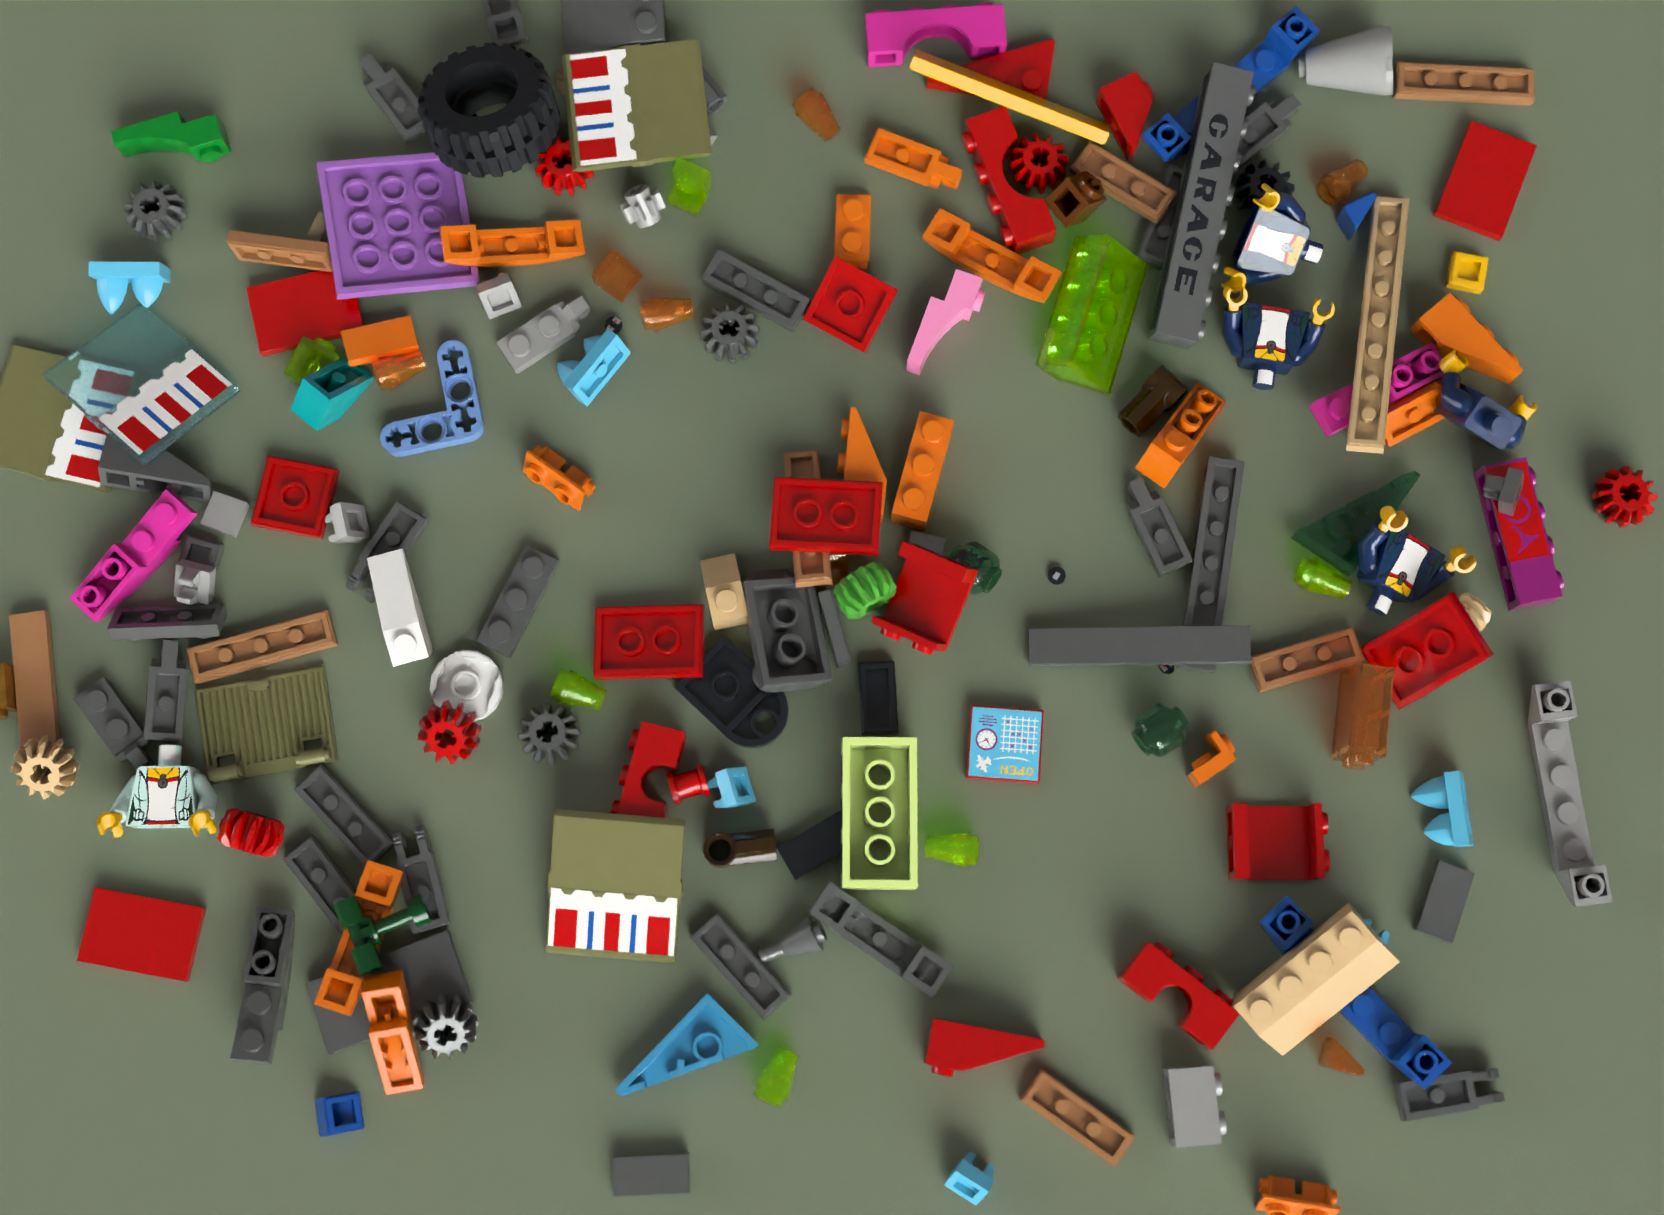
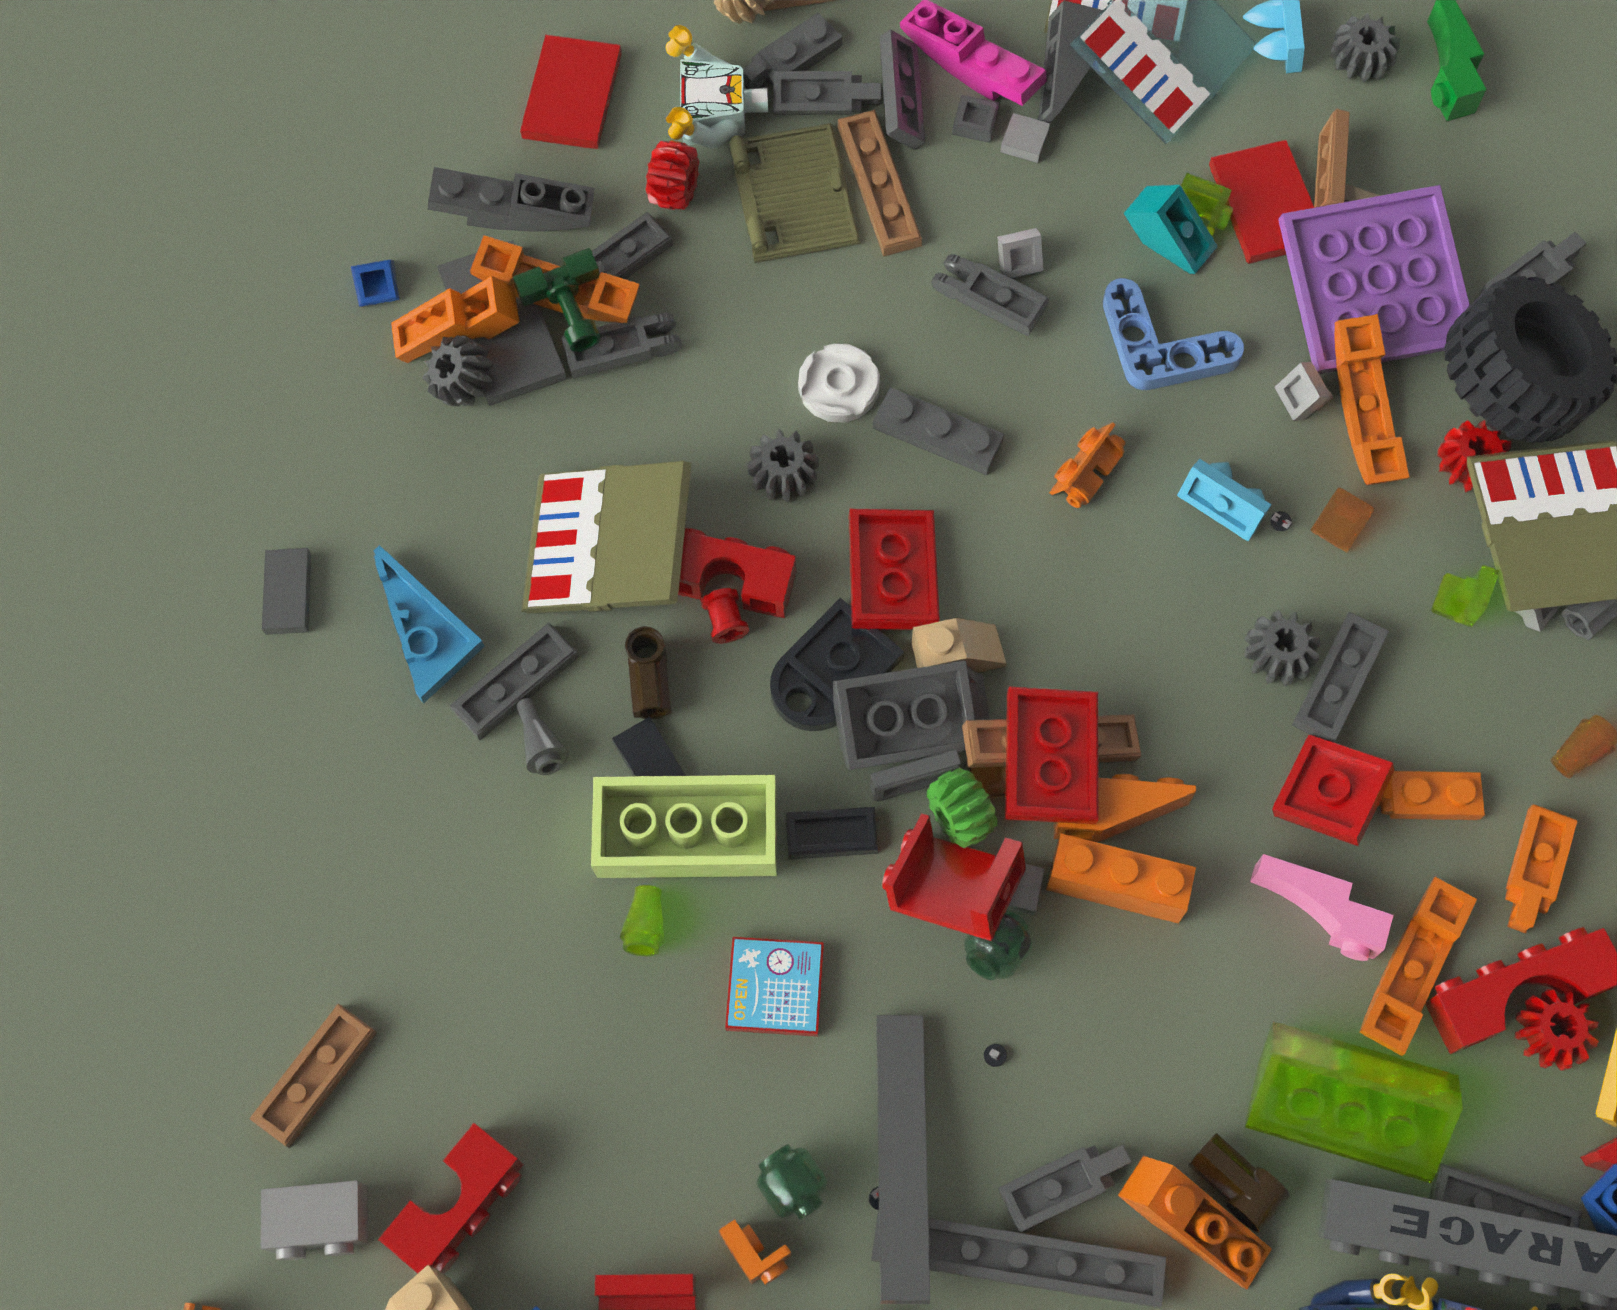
camera: 90 degrees right, 10 degrees down
(194, 582) = (945, 110): light grey tile -> none
(295, 497) = (1049, 200): red tile -> none
(344, 815) = (693, 269): dark grey tile -> none
(379, 339) = (1236, 274): orange tile -> none
(396, 369) = (1204, 292): clear orange cone -> none
(399, 608) = (920, 303): white slope -> none
(443, 744) = (783, 360): red gear -> none
(543, 334) = (1262, 444): light grey hinge -> none
(576, 690) = (834, 492): clear neon green cone -> none
(642, 206) = (1434, 543): light grey gear -> none
(665, 312) = (1301, 574): clear orange cone -> none
(734, 787) = (720, 665): medium azure tile -> none
(776, 1079) = (379, 719): clear neon green cone -> none
(880, 939) = (538, 836): dark grey slope -> none
(965, 1047) = (404, 936): red slope -> none
(970, 1181) = (247, 939): medium azure tile -> none
(1076, 198) = (1511, 1076): reddish brown brick -> none
(1125, 182) = (1545, 1147): medium nougat tile -> none

